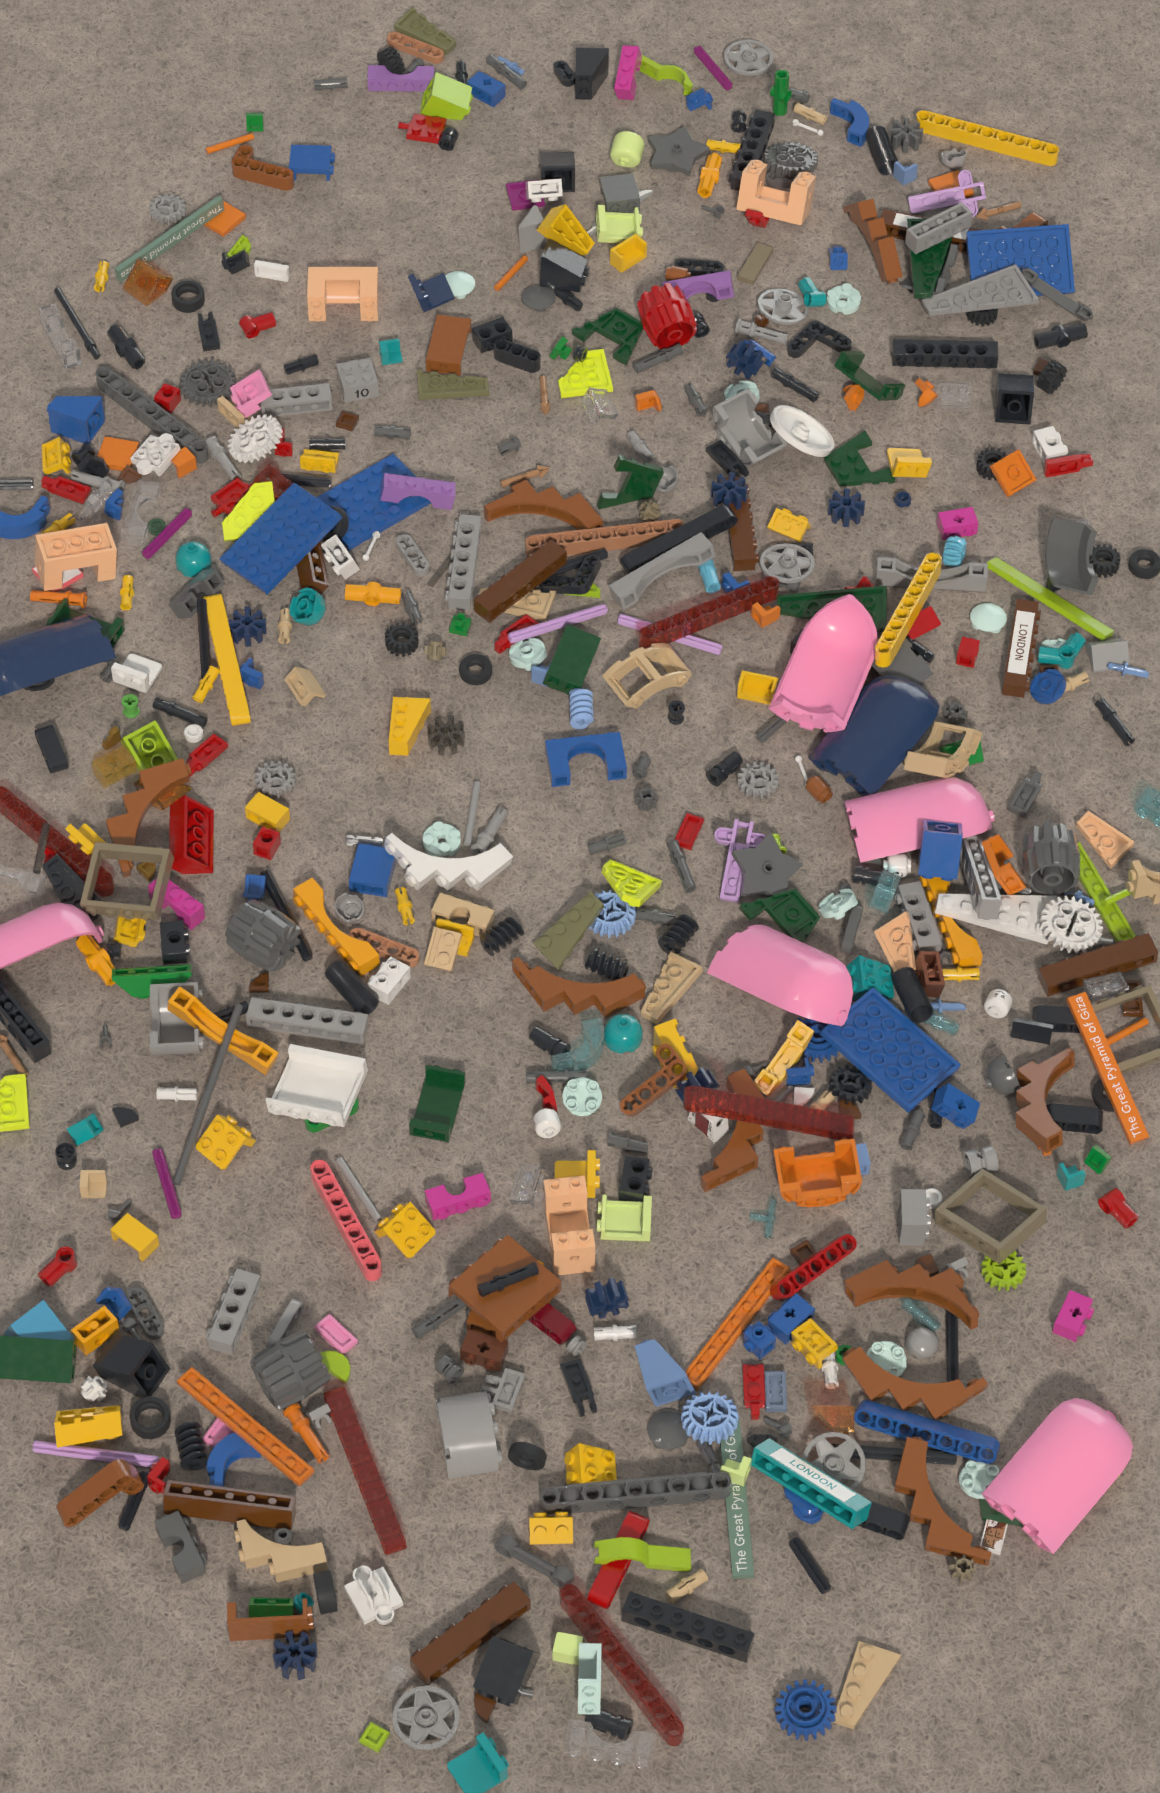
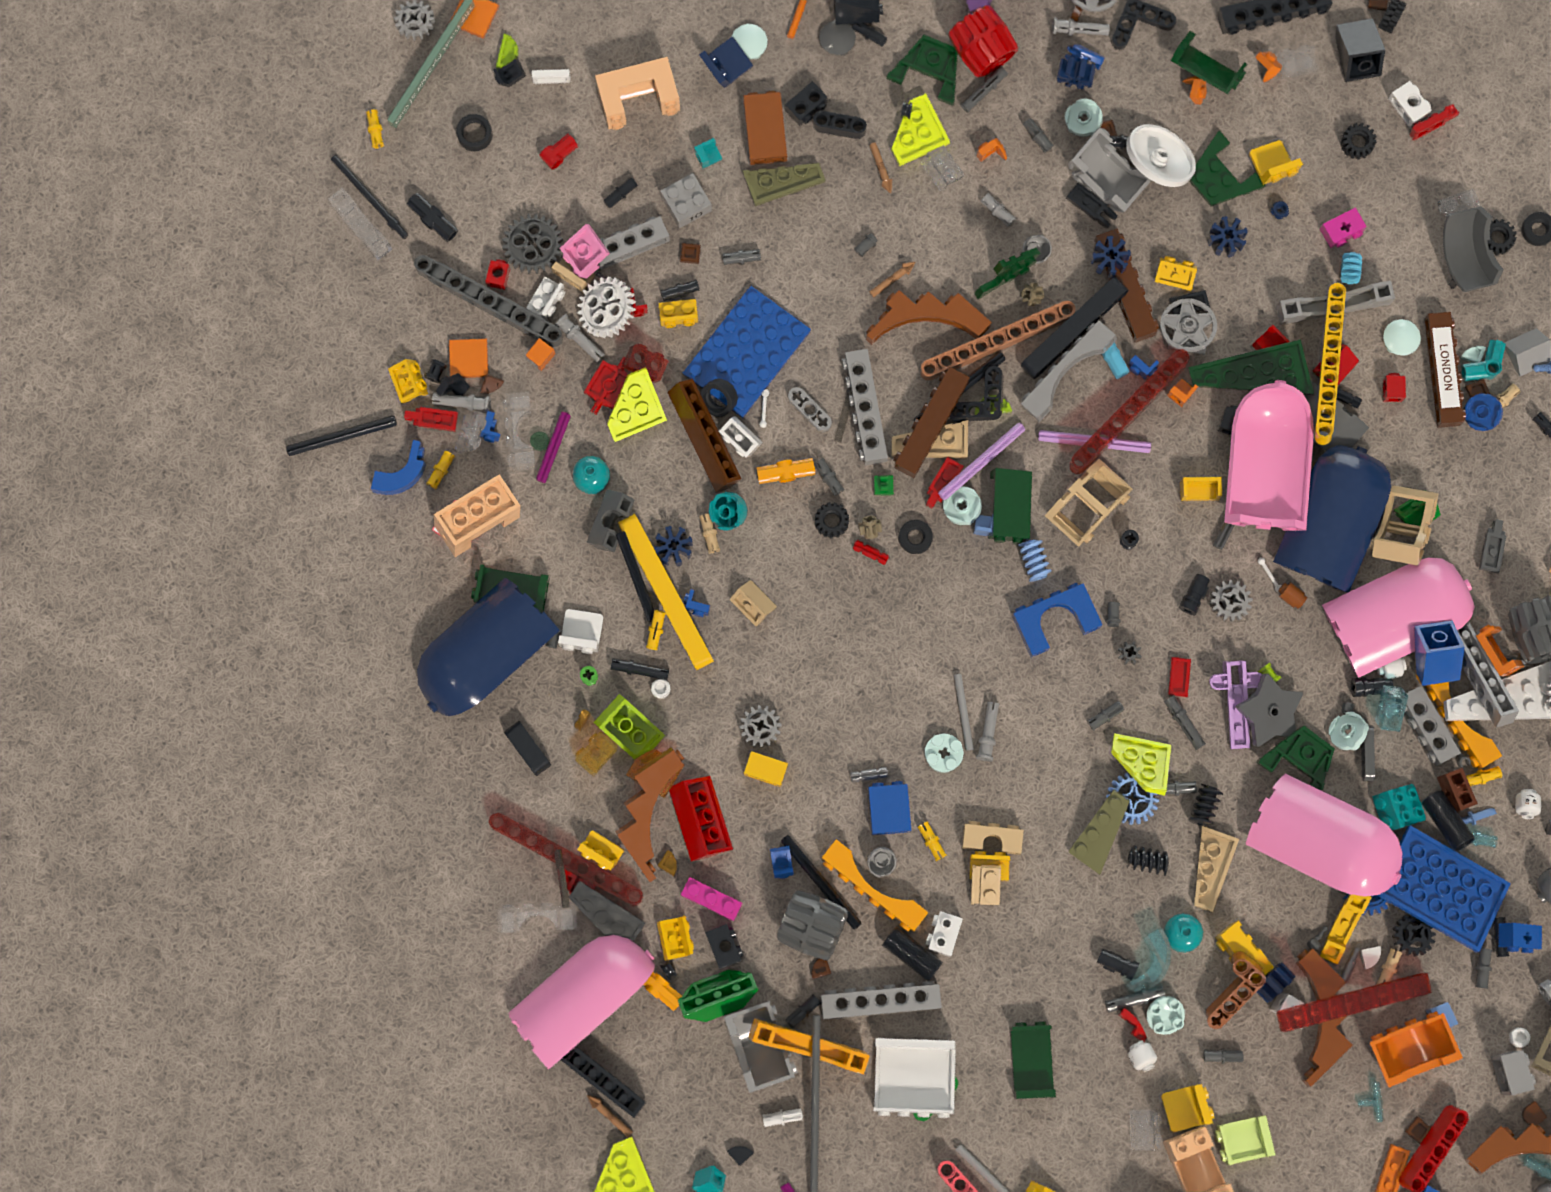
camera: 15 degrees left, 25 degrees up
(74, 599) = (480, 557): orange pin -> none
(76, 417) = (414, 329): blue slope -> none
(105, 1038) = (692, 1070): dark grey hand -> none
(126, 592) = (537, 533): yellow pin -> none
(129, 853) = (673, 934): dark tan window -> none
(147, 282) = (426, 126): clear orange slope -> none
(155, 454) = (512, 356): white piece -> none
(206, 424) = (546, 297): none -> white bracket
(206, 753) = (681, 713): red hinge -> none
(208, 333) = (511, 175): black hinge -> none
(223, 1140) = (845, 1158): yellow bracket -> none
(266, 843) = (780, 812): red brick -> none
(280, 538) = (676, 434): blue plate -> none
(307, 480) = (672, 342): black axle -> none
(386, 944) = (926, 897): nougat beam -> none
(398, 487) = (777, 336): medium lavender arch -> none
(406, 722) = (868, 622): yellow wedge -> none
(429, 672) = (870, 552): none -> red axle
(443, 1204) = (1098, 1152): dark pink arch -> none
(446, 735) = (906, 623): clear smoke gear -> none
(448, 871) = (991, 783): white arch -> none
(500, 934) = (1036, 853): black piece -> none
(552, 990) = (1102, 903): dark orange arch -> none
(560, 349) = (881, 104): green tile -> none
(631, 1179) = (1236, 1097): black brick -> none
(702, 327) = (1019, 37): black wheel -> none
(789, 381) = (1133, 88): black pin -> none
(800, 1076) = (1360, 937): blue bracket -> none
(849, 1109) = (1418, 962): reddish brown tile -> none
(897, 942) = (1417, 762): light nougat wing -> none
(955, 713) = (1399, 472): dark grey gear -> none
(1013, 473) = (1383, 150): orange tile -> none
(1050, 599) = (1456, 298): lime tile -> none

